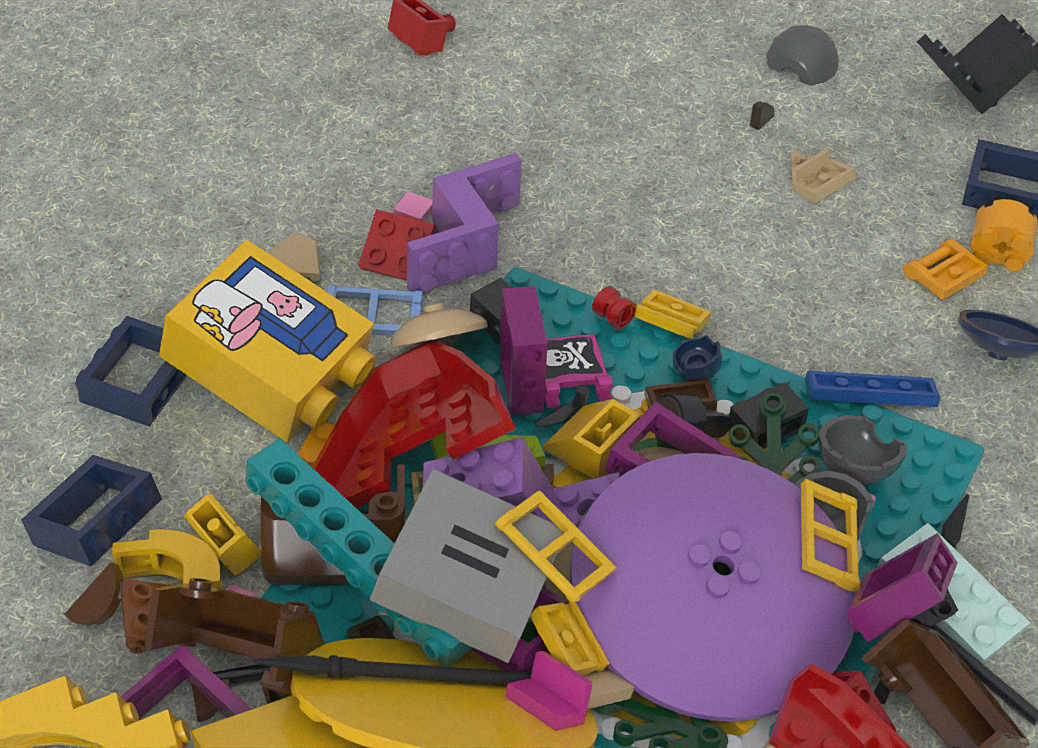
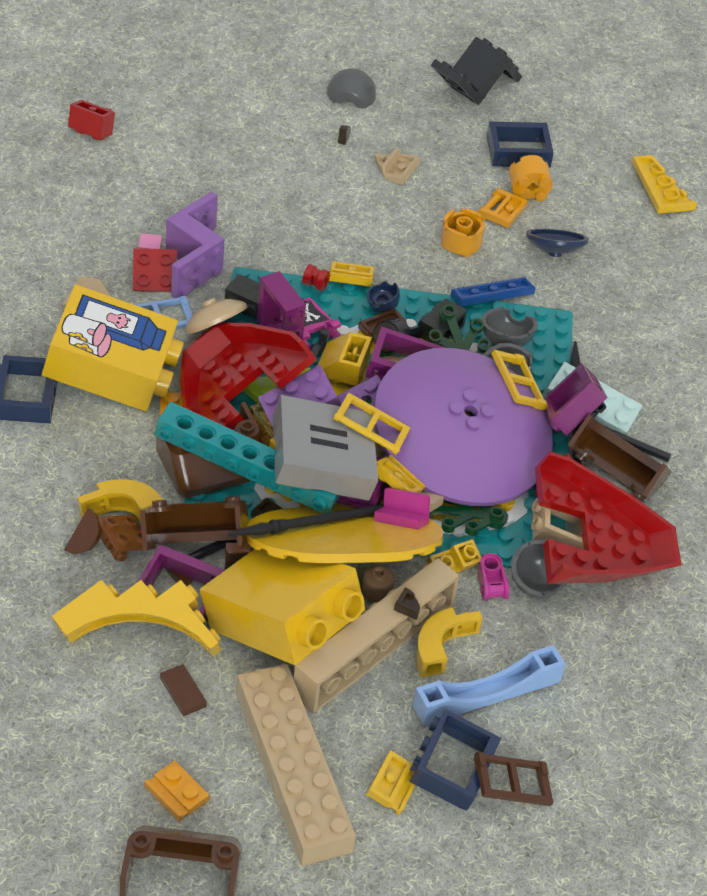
camera: 25 degrees left, 0 degrees up
(50, 519) = (23, 495): dark blue window -> none
(222, 534) = (138, 469): yellow brick -> none
(865, 290) = (462, 232): none -> light orange brick

